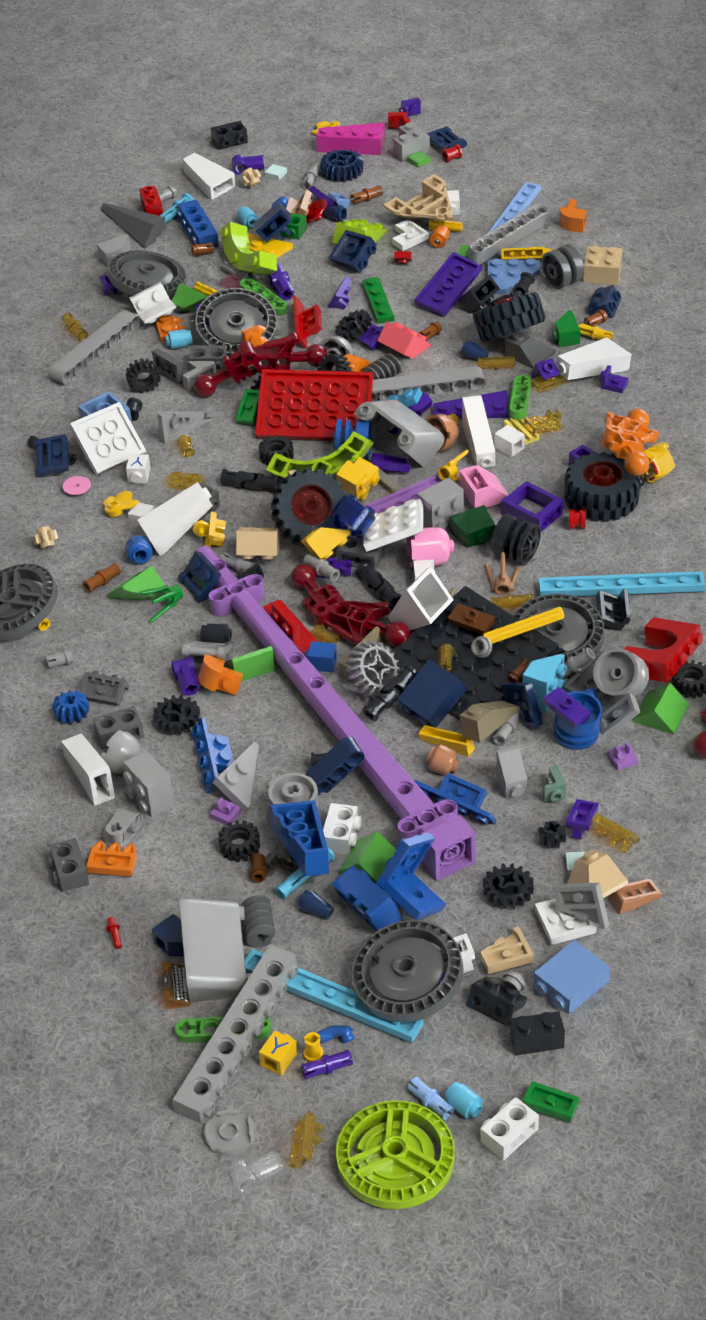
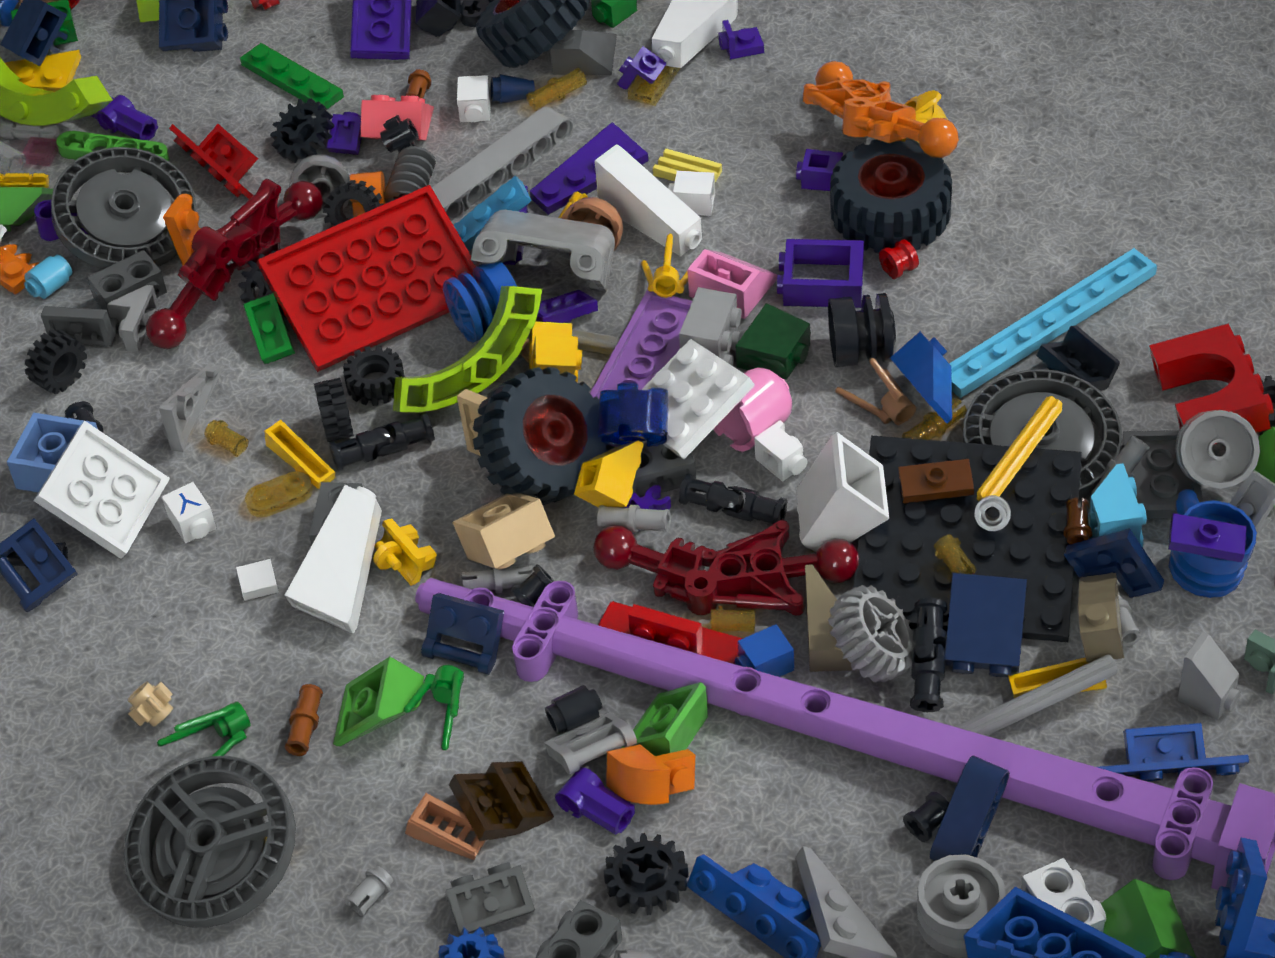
camera: 35 degrees left, 5 degrees up
(70, 560) = (228, 721): none -> green plant
(76, 485) = (111, 591): bright pink piece -> none
(111, 640) = (431, 834): none -> nougat slope
(115, 505) = (210, 584): yellow plate -> none
(138, 550) = (321, 642): blue head -> none
(148, 654) = (500, 800): none -> dark brown slope
(209, 467) = (297, 453): none -> yellow piece
(239, 454) = (333, 409): none -> black tyre
(340, 297) = (229, 93): dark purple plate -> none
(391, 346) = (398, 134): none -> black gear
(423, 739) = (1042, 697): none -> light grey axle
(442, 760) = (1090, 714): nougat head -> none
(450, 348) = (473, 98): none -> white brick
(520, 397) = (647, 120): bright green beam -> none
(526, 574) = (928, 372): none -> blue slope
(546, 423) = (713, 143): clear yellow plate -> none

